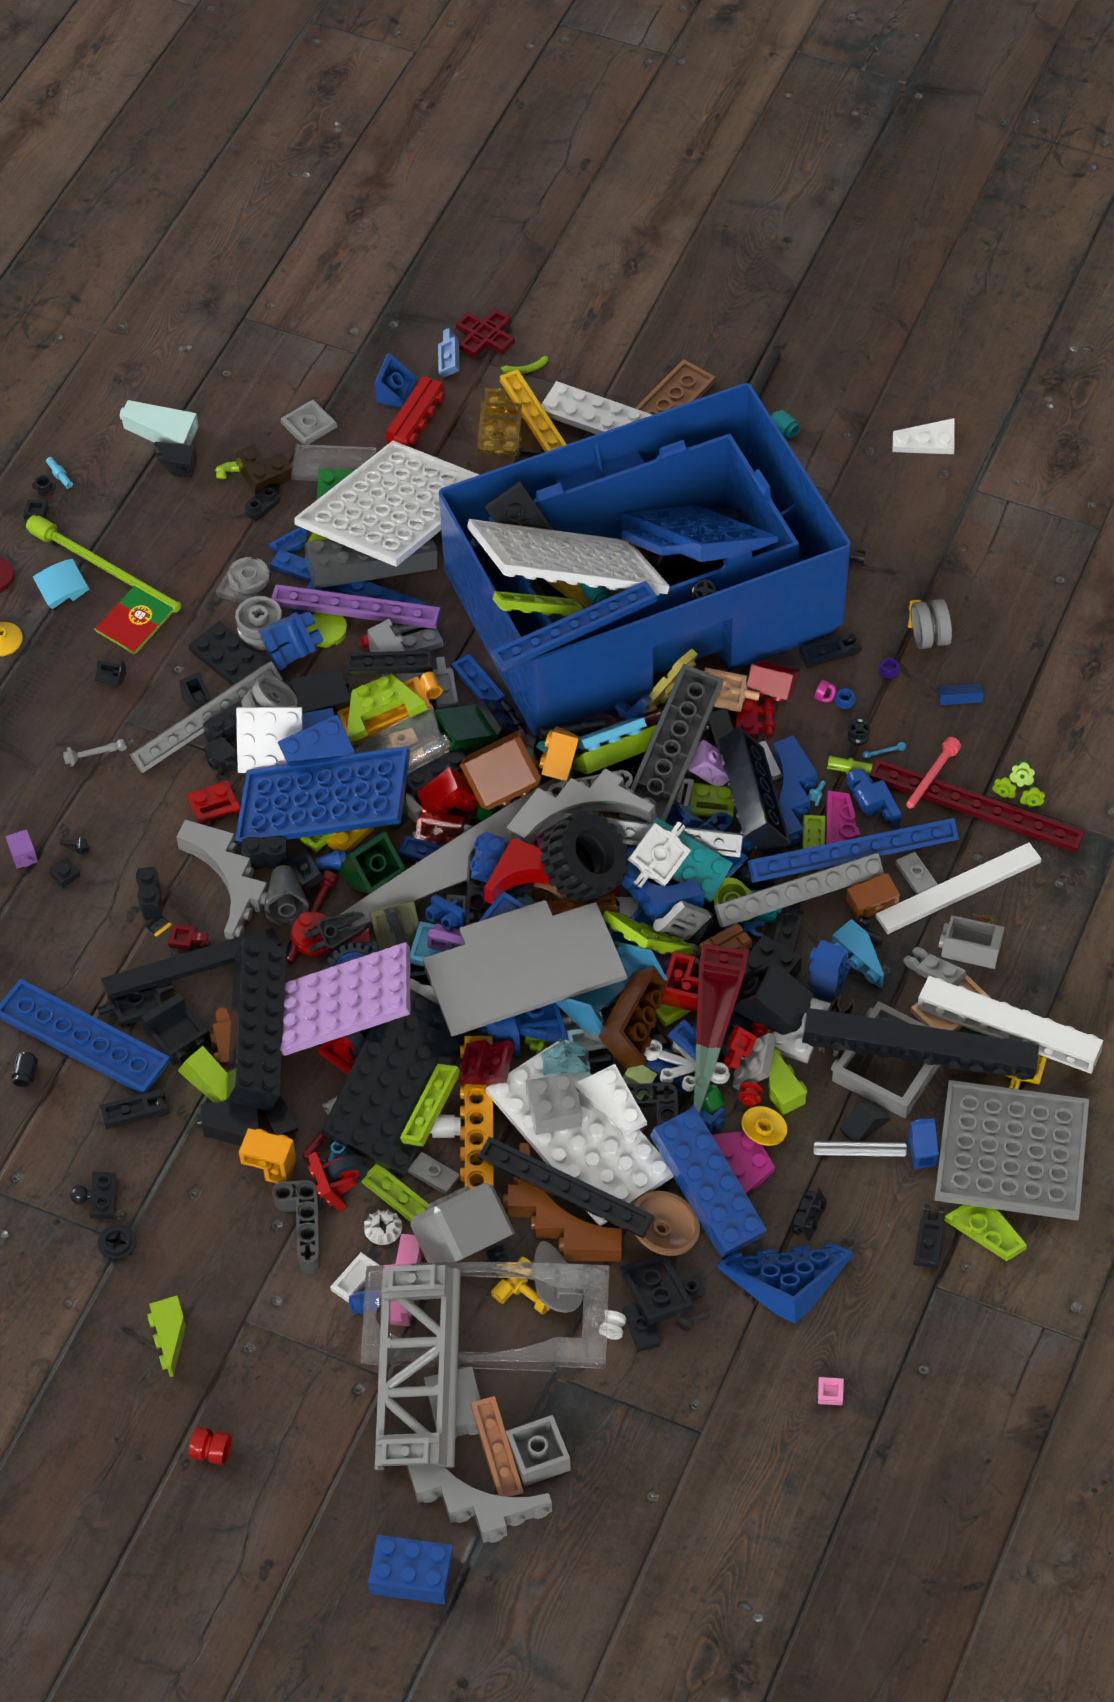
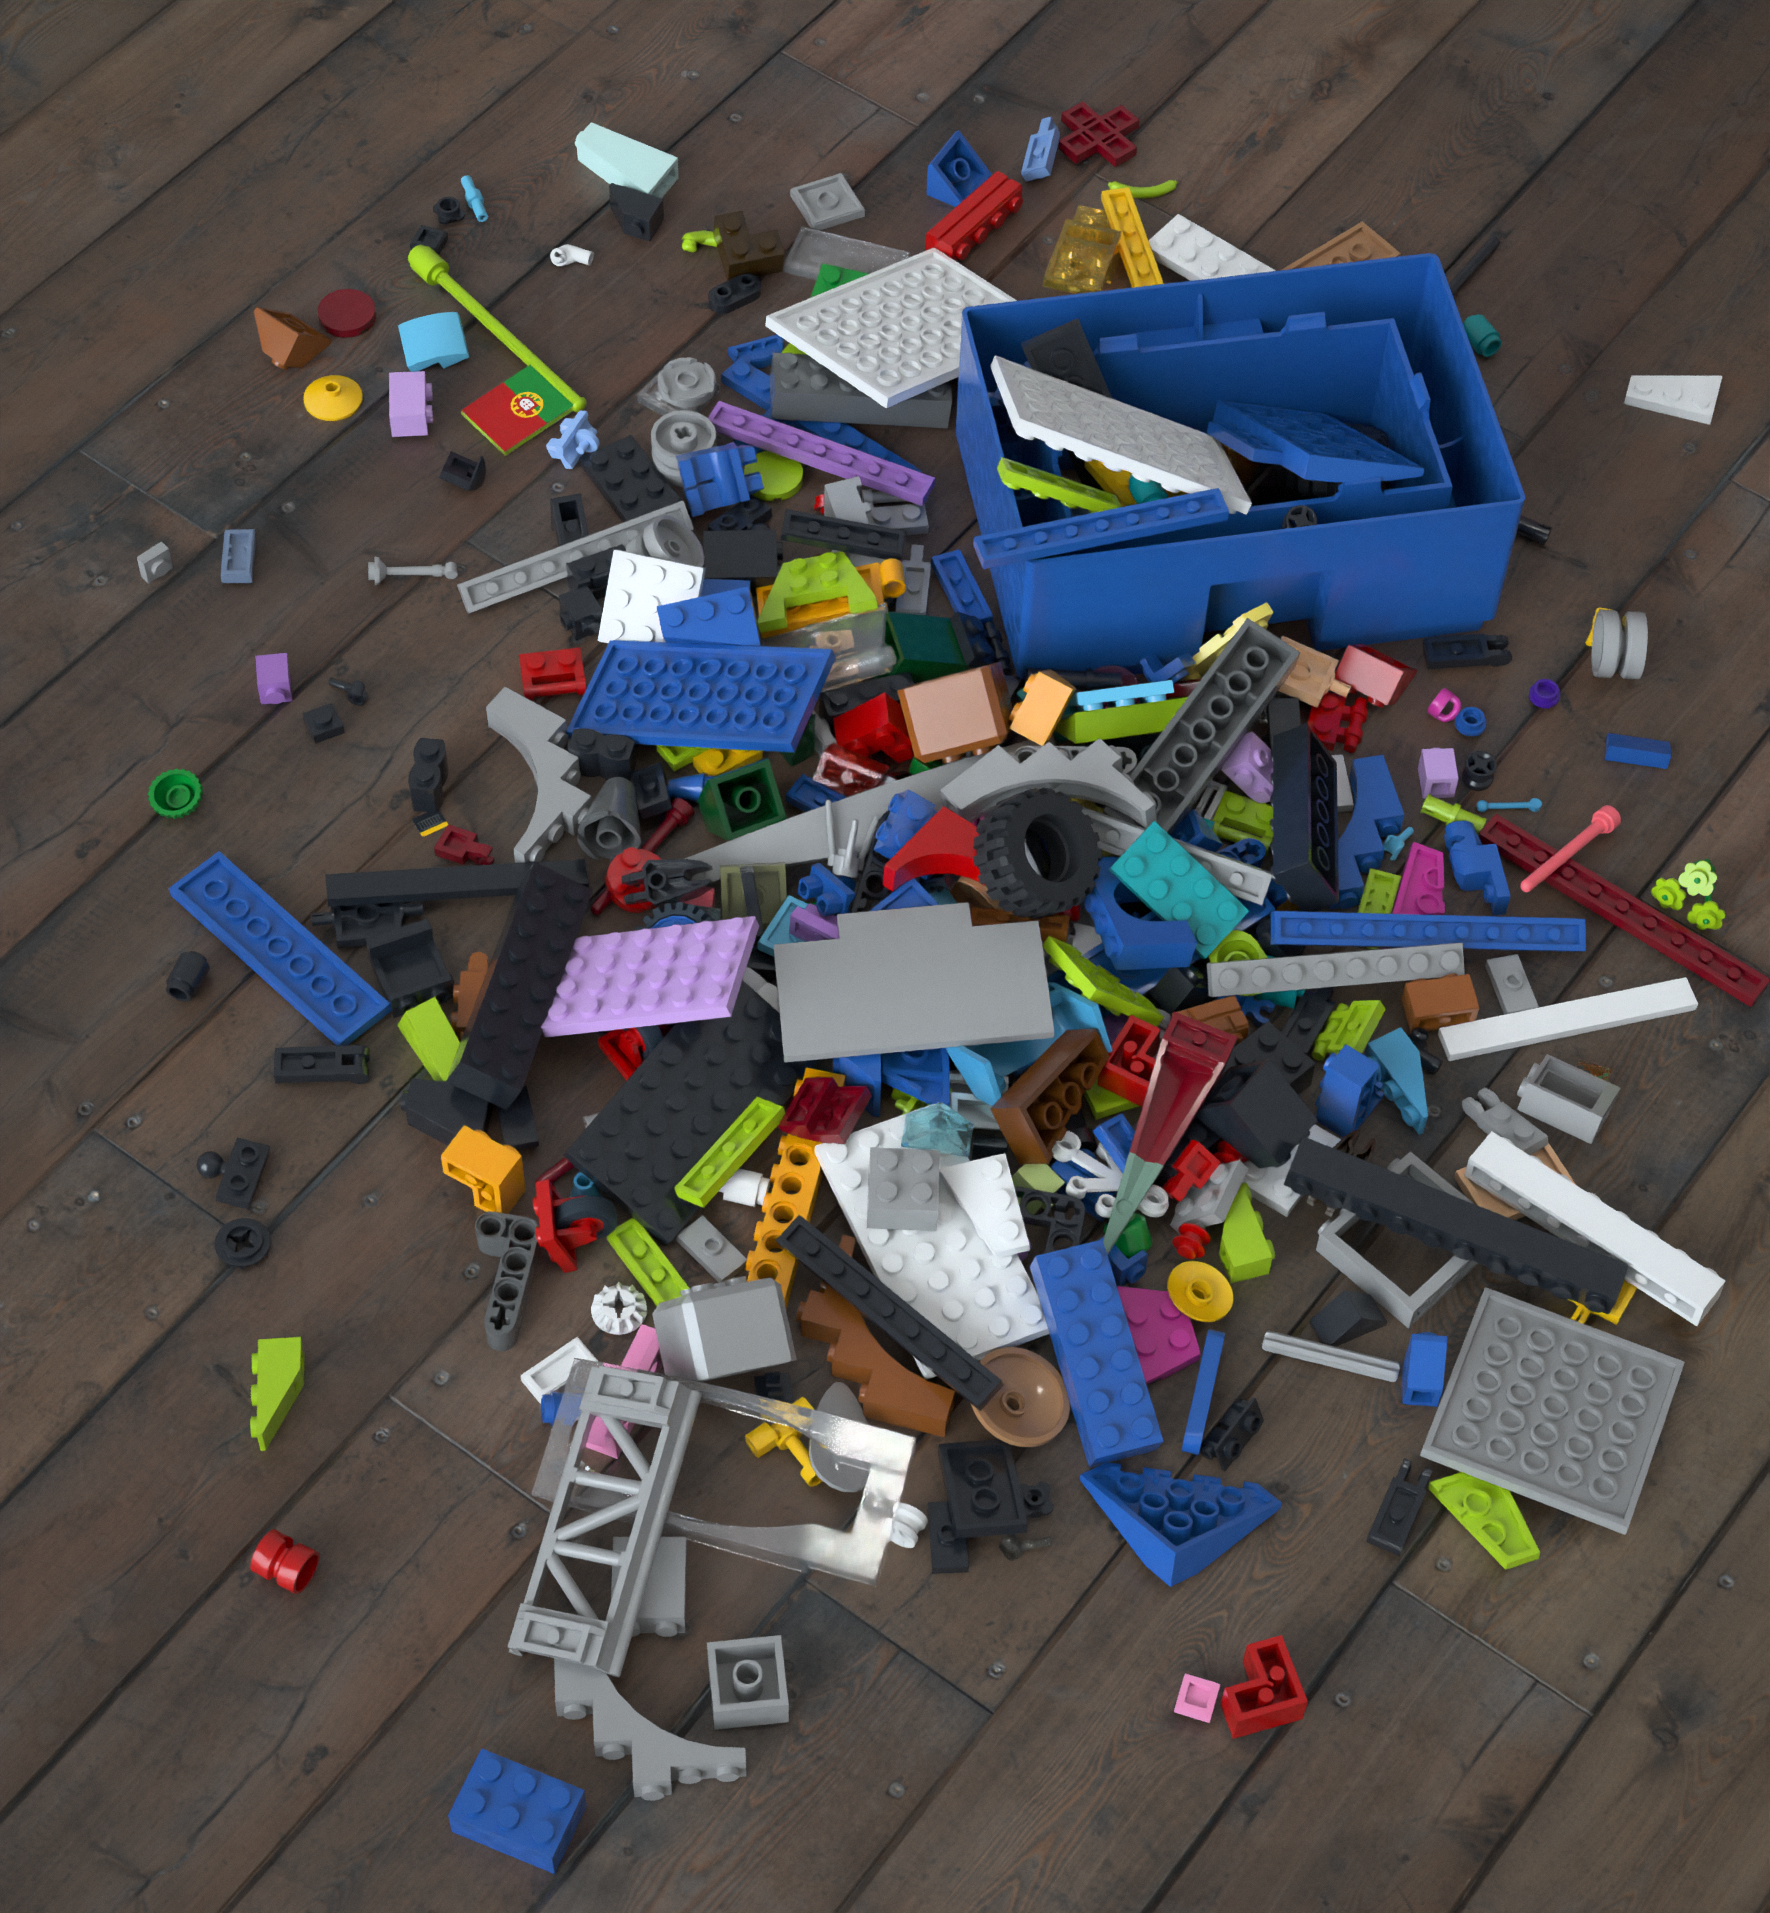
camera: 10 degrees right, 0 degrees up
(58, 632) = (408, 403): none -> lavender brick
(138, 499) = (569, 254): none -> white arm
(183, 633) = (575, 440): none -> light blue hips
(314, 663) = (744, 516): none -> black plate
(454, 889) = (846, 861): none -> light grey plant
(496, 1447) = (688, 1663): nougat plate -> none
(659, 854) = (1145, 874): white plate -> none
(685, 915) = (1162, 968): light grey plate -> none
(783, 1191) = (1203, 1392): none -> blue beam
(817, 927) = (1350, 1027): none -> lime plate
(832, 739) = (1438, 772): none -> lavender brick
(877, 1378) = (1271, 1694): none -> red brick

